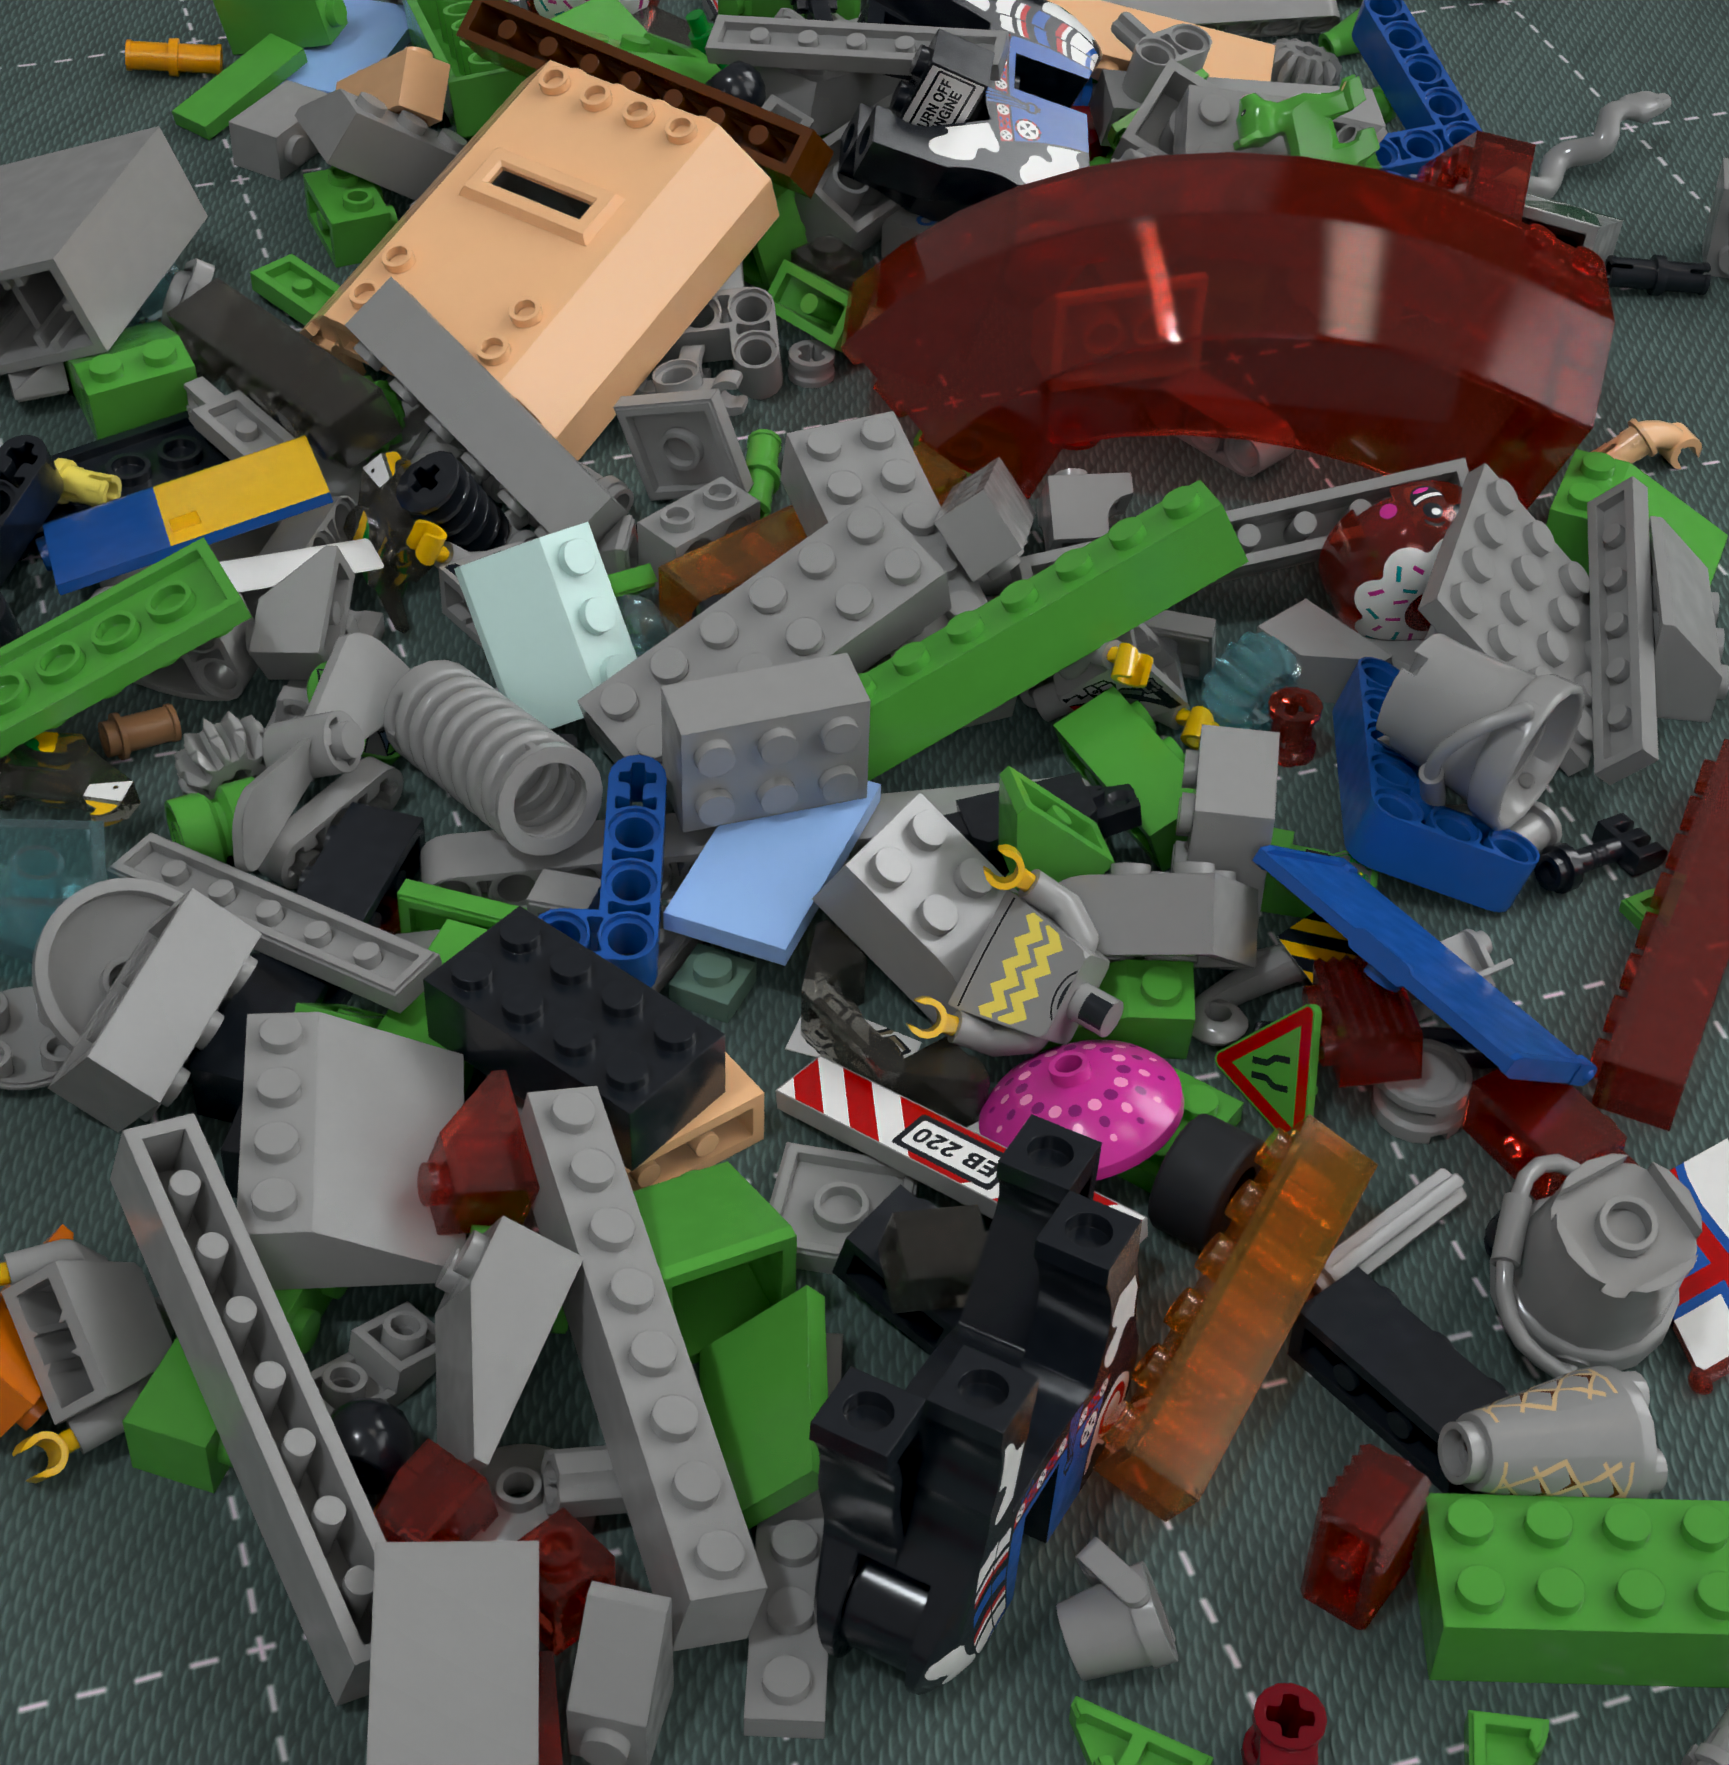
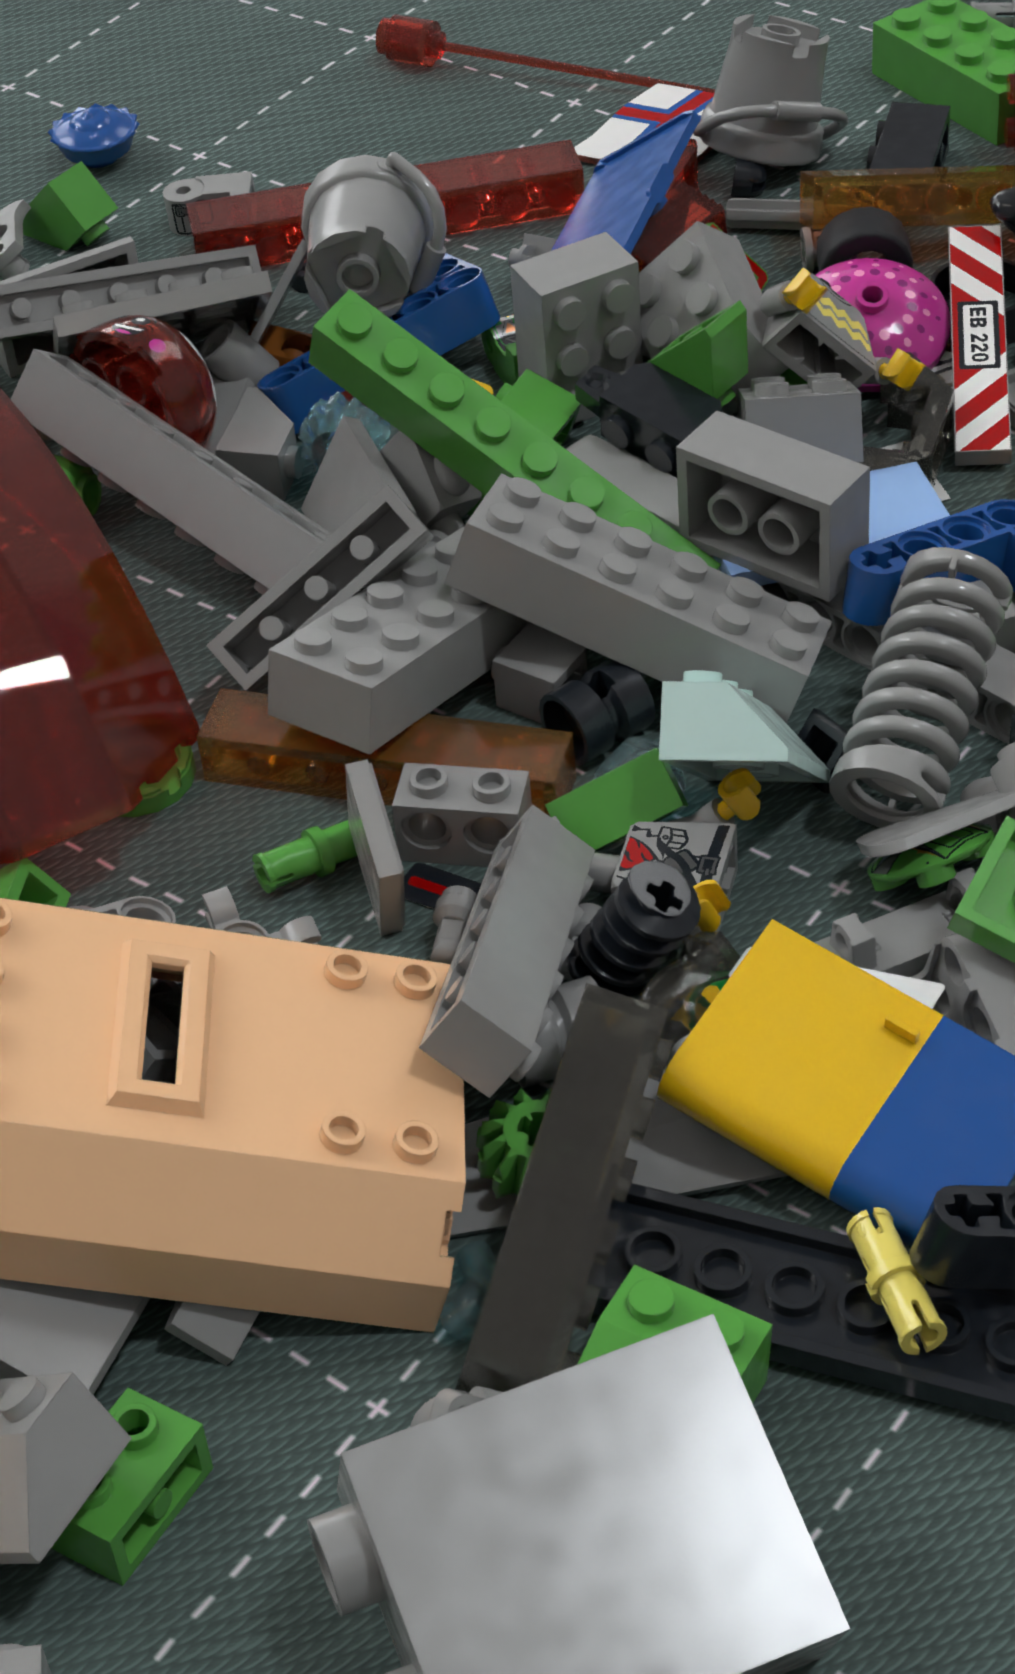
camera: 120 degrees left, 0 degrees up
(231, 420) = (669, 1193): light grey hinge -> none
(293, 287) = (322, 1411): bright green plate -> none
(302, 617) = (889, 907): light grey slope -> none
(1079, 504) = (187, 618): light grey brick -> none
(1560, 1438) = (907, 68): light grey cone -> none

